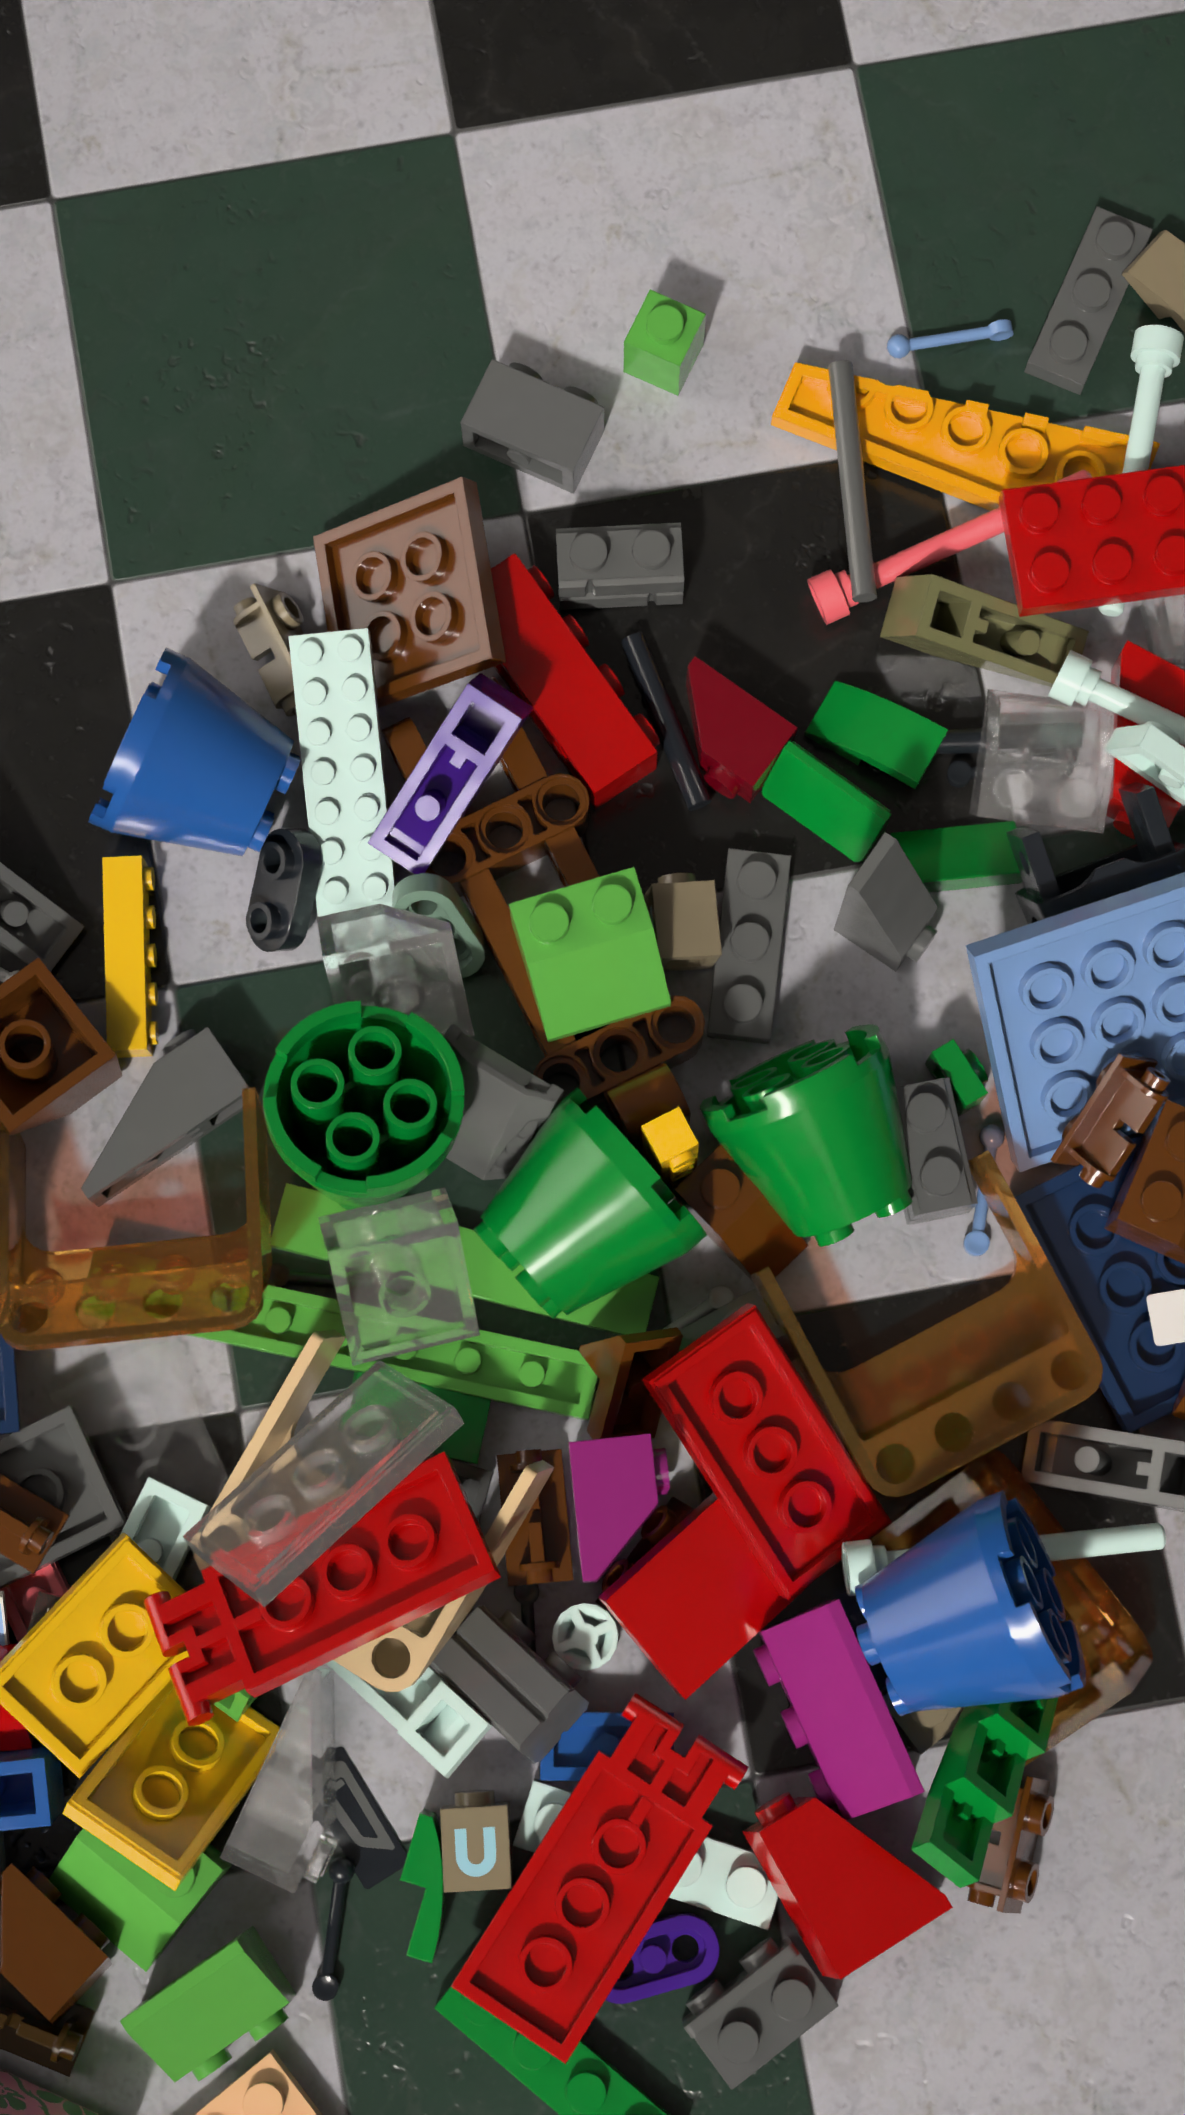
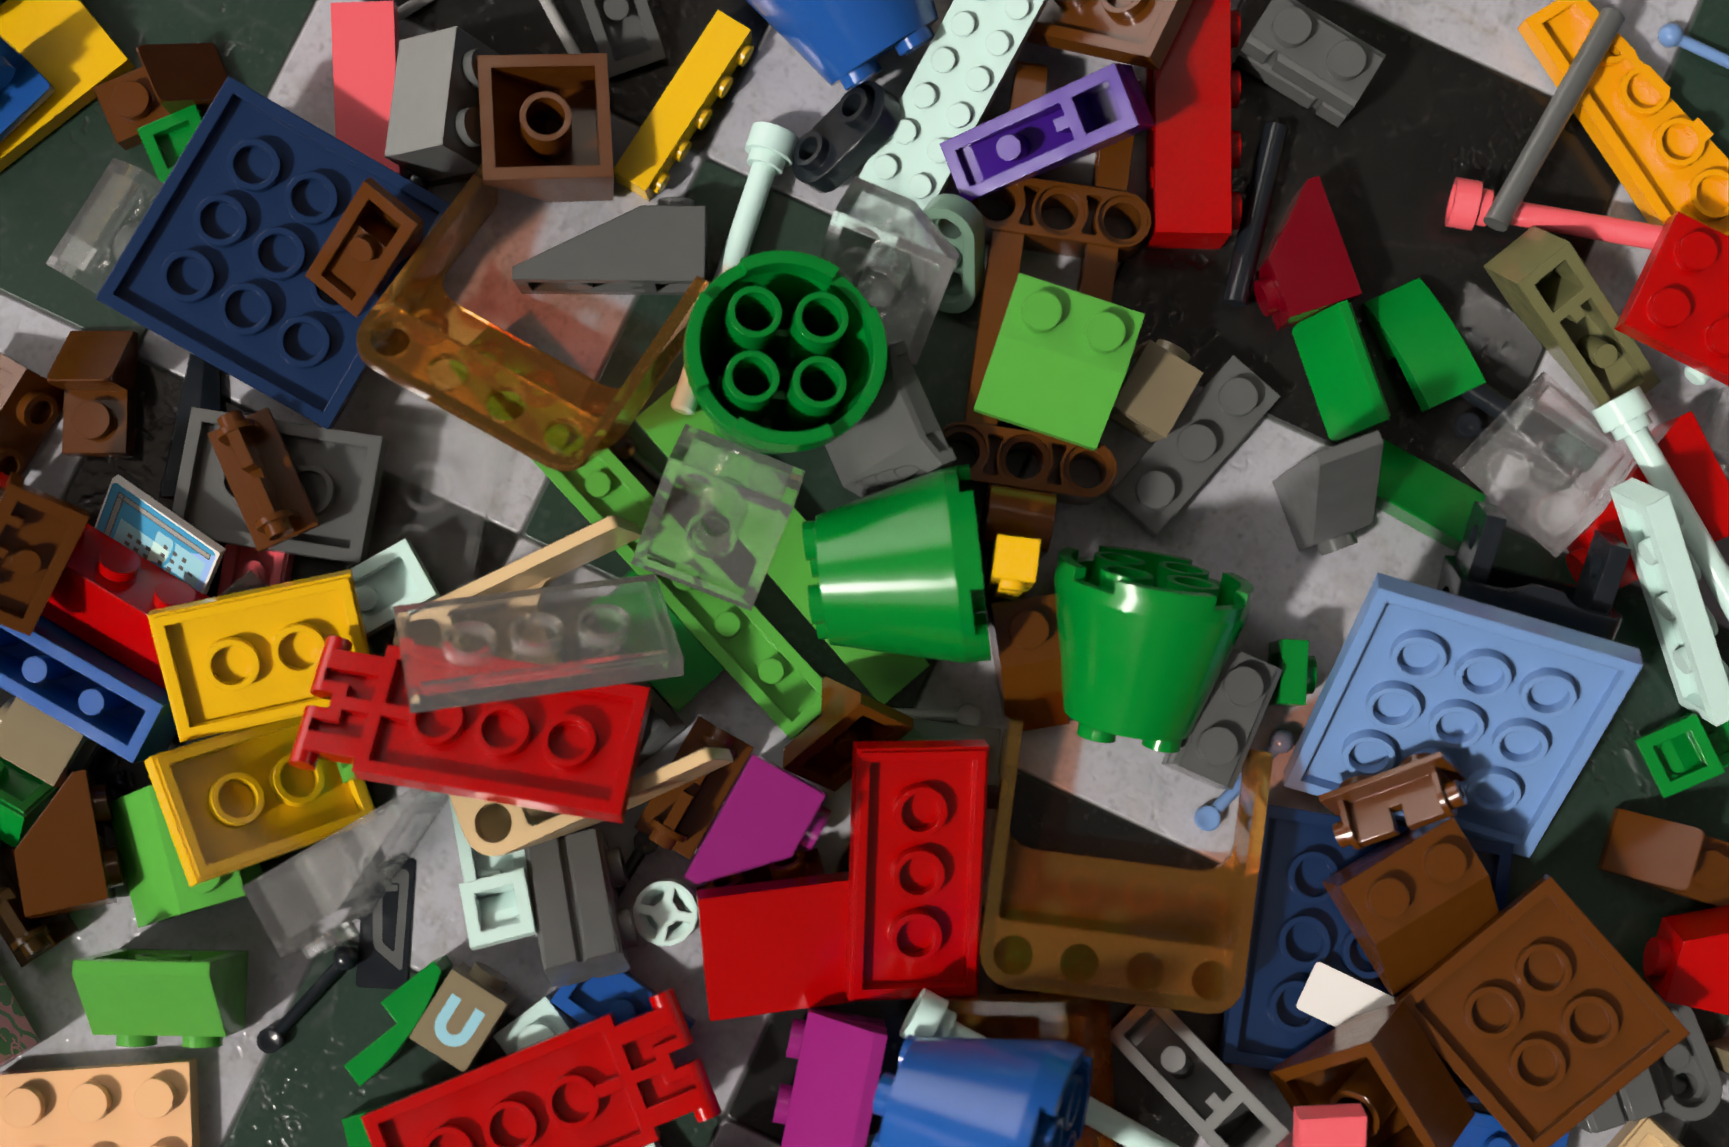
camera: 25 degrees right, 5 degrees up
(227, 945) = (769, 151): none -> light aqua piece

